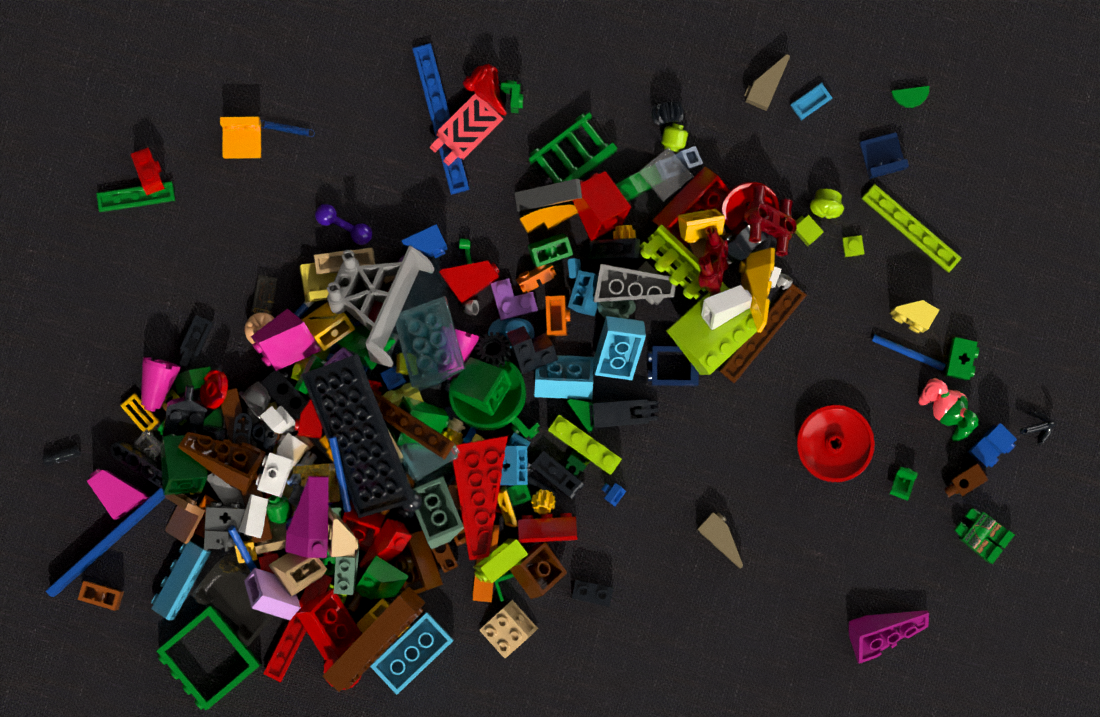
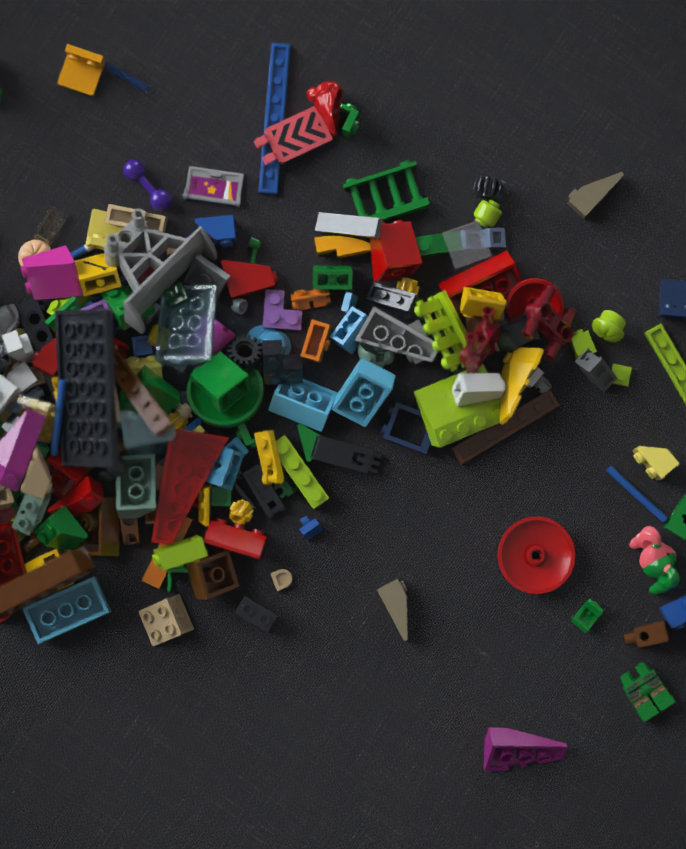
camera: 25 degrees right, 0 degrees up
(407, 205) = (207, 186): none -> door
(410, 319) = (176, 295): none -> dark green tile
(430, 288) = (206, 273): none -> dark grey plate
(552, 441) = (269, 457): none -> yellow plate
(604, 551) = (281, 578): none -> tan tile
(811, 101) = (629, 225): dark azure tile -> none
(829, 249) = (596, 370): none -> dark grey hinge

